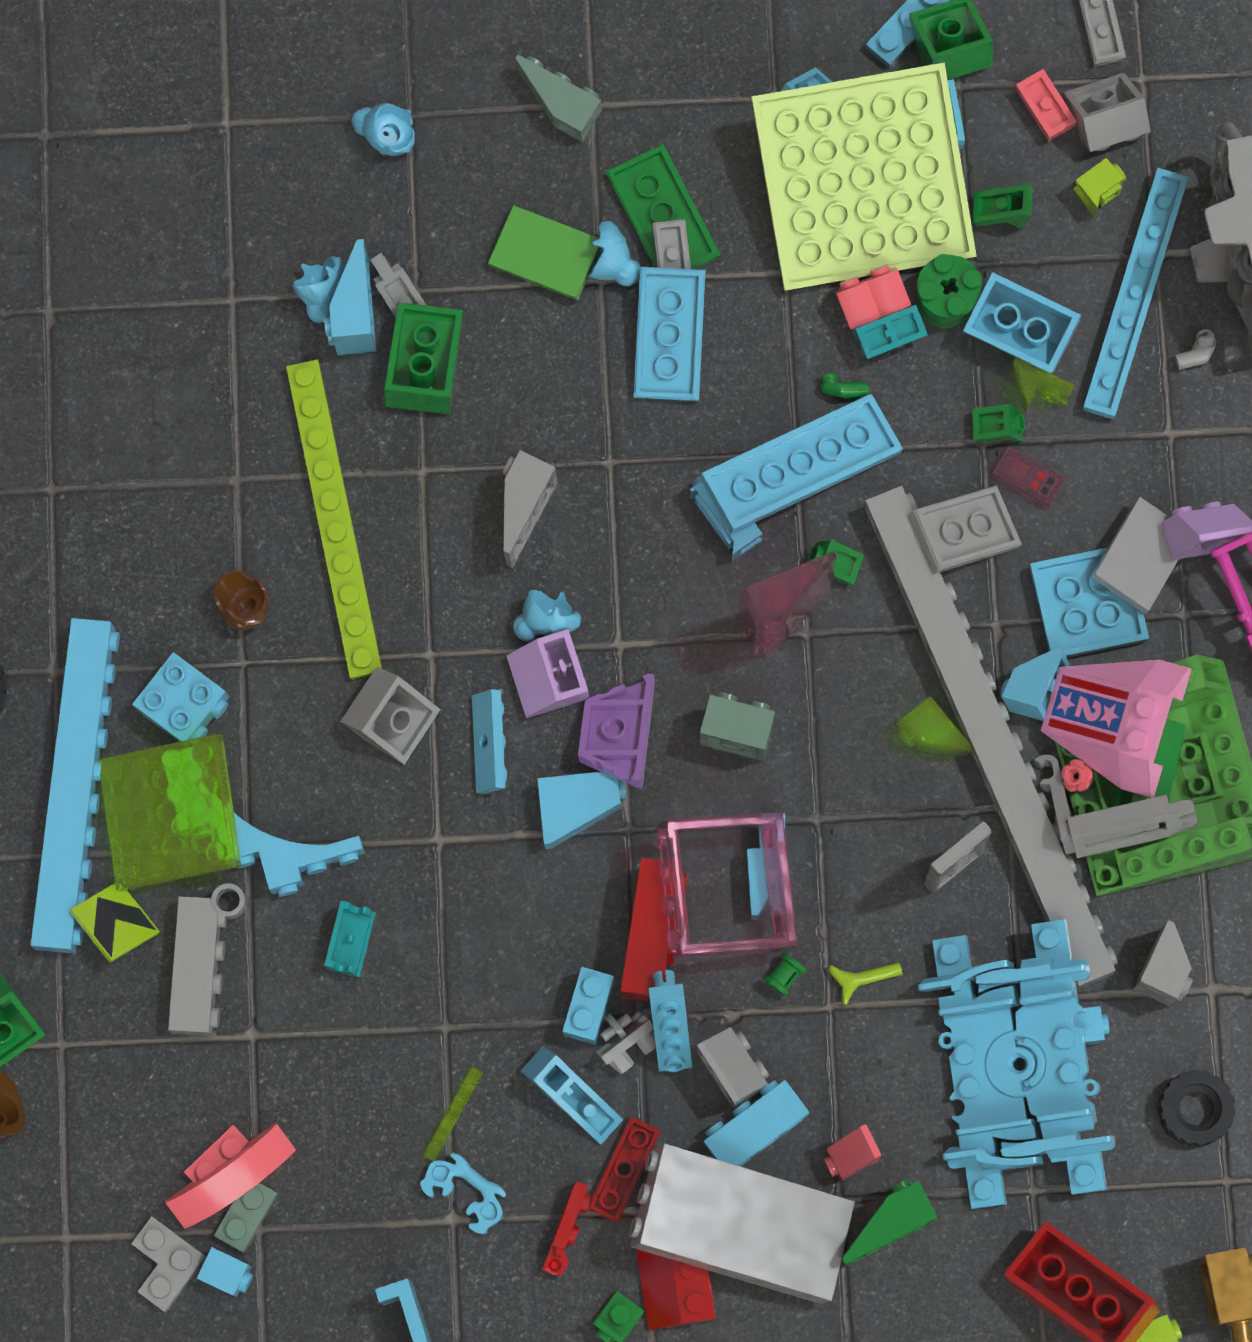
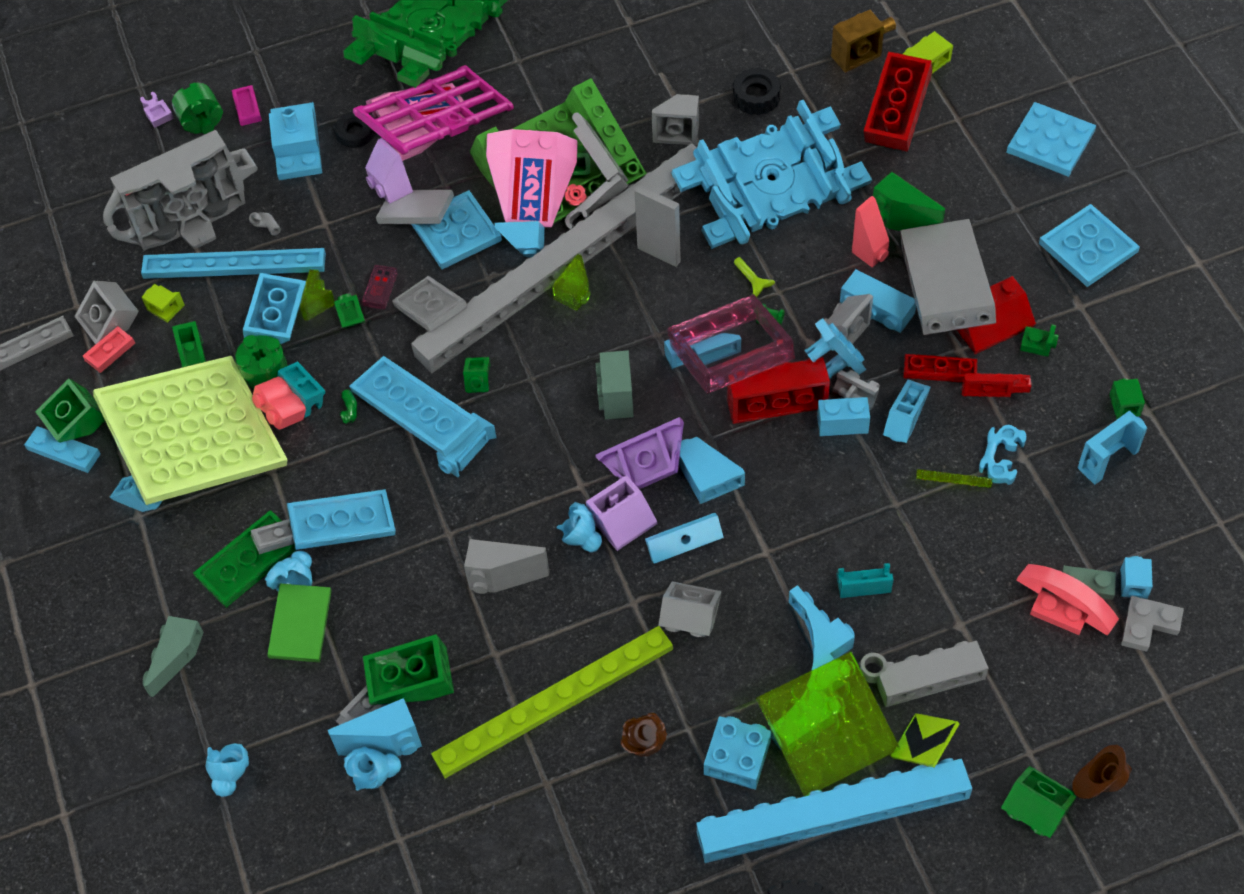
camera: 110 degrees left, 20 degrees down
(781, 603) = (521, 368): clear pink slope -> none

